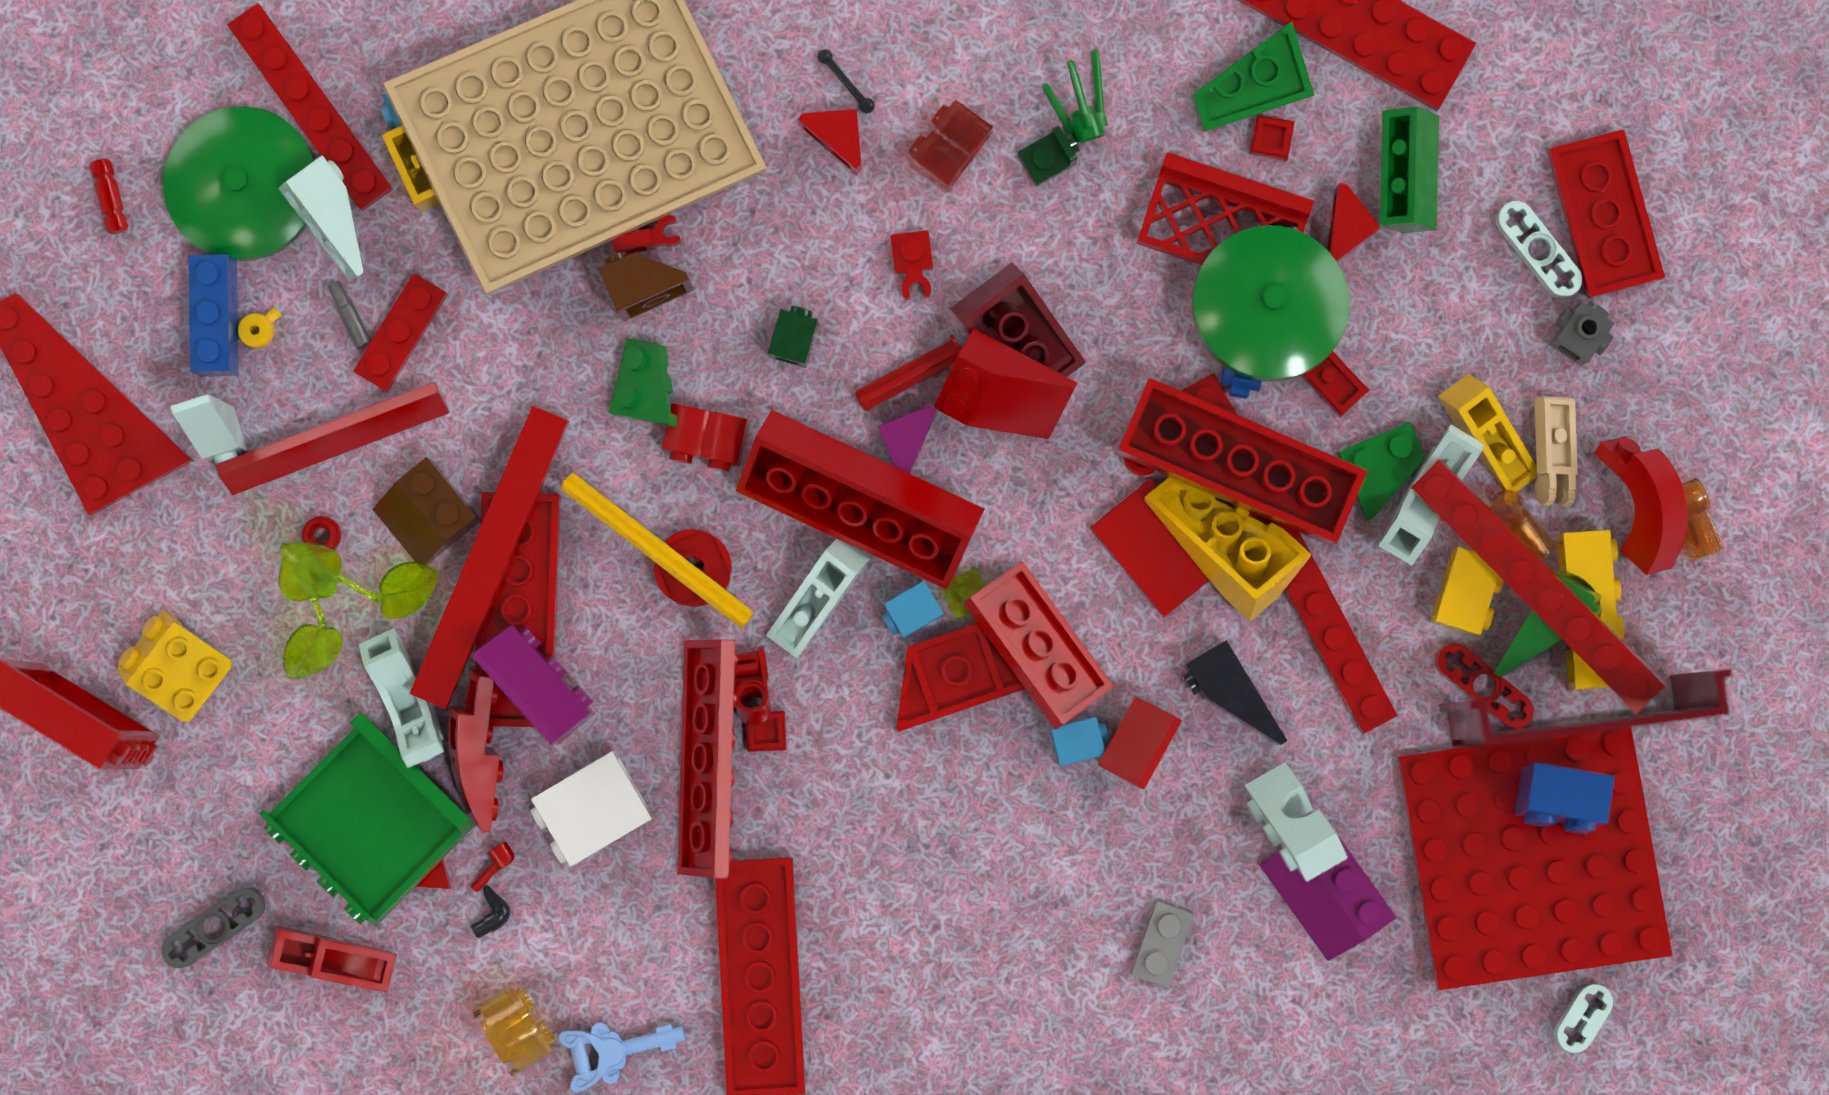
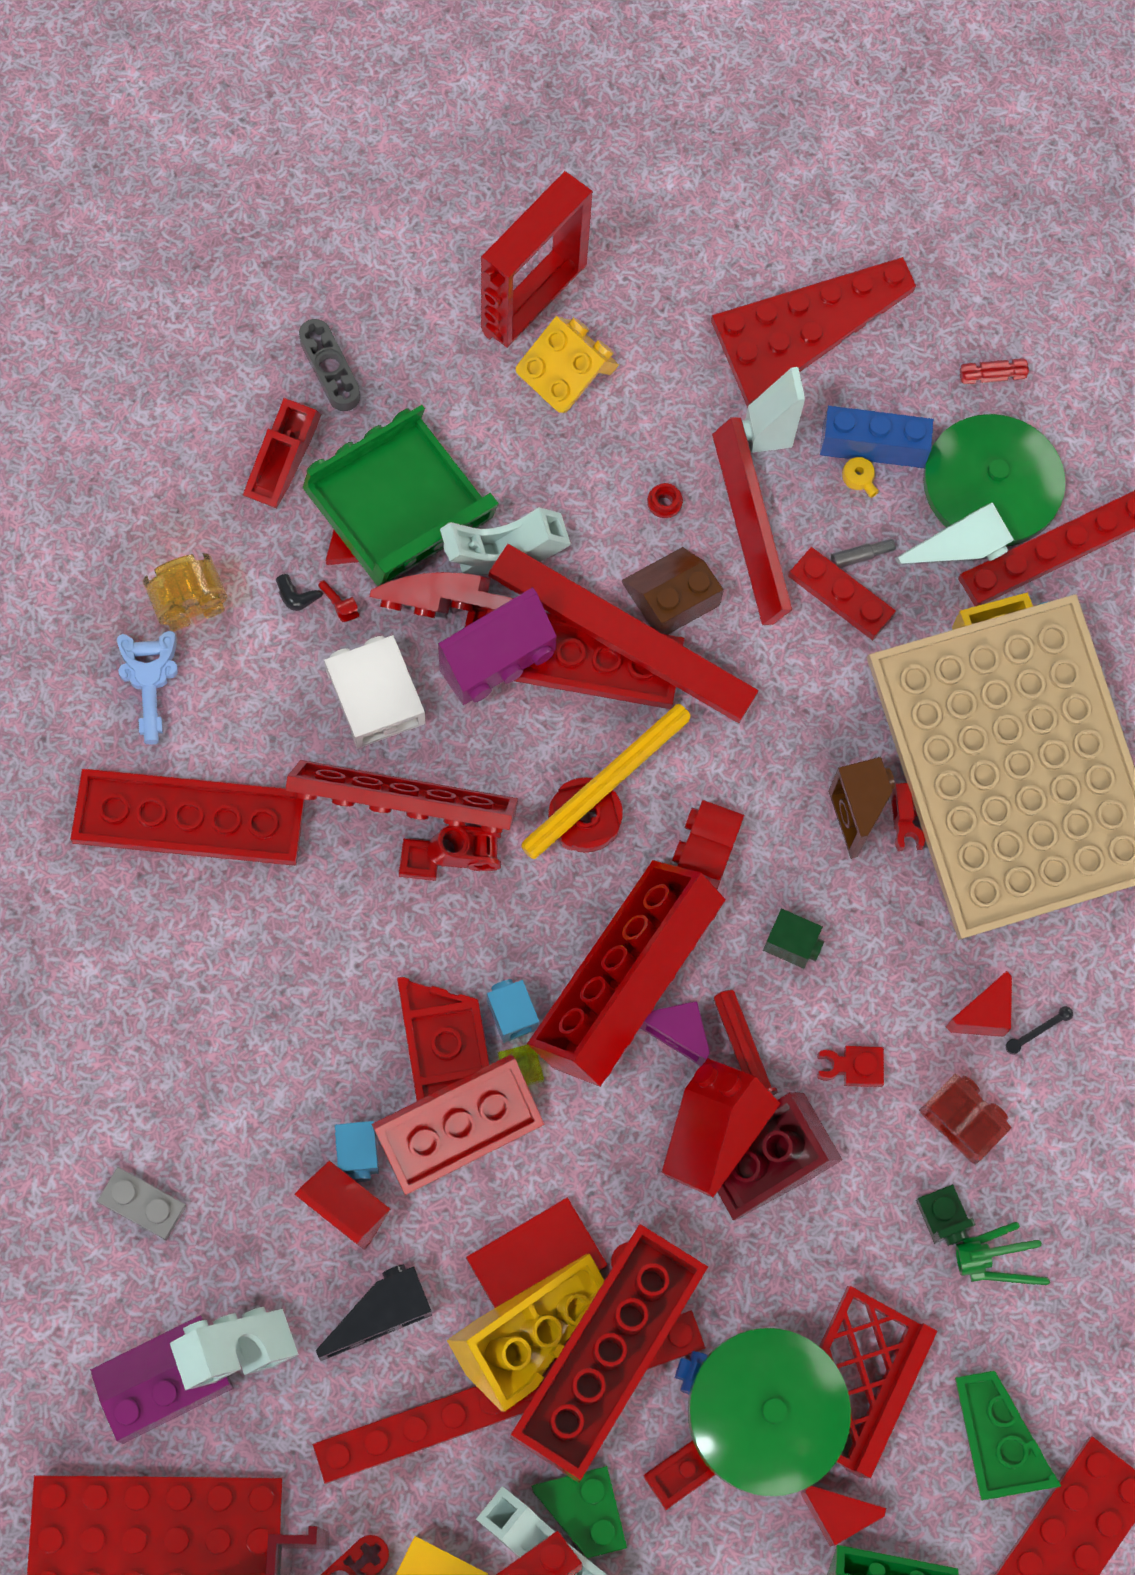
camera: 90 degrees right, 15 degrees down
(313, 573) = (633, 462): clear neon green plant -> none
(643, 384) = (766, 795): green wing -> none
(818, 596) = (541, 924): light aqua slope -> none
(1272, 137) = (941, 1450): red tile -> none

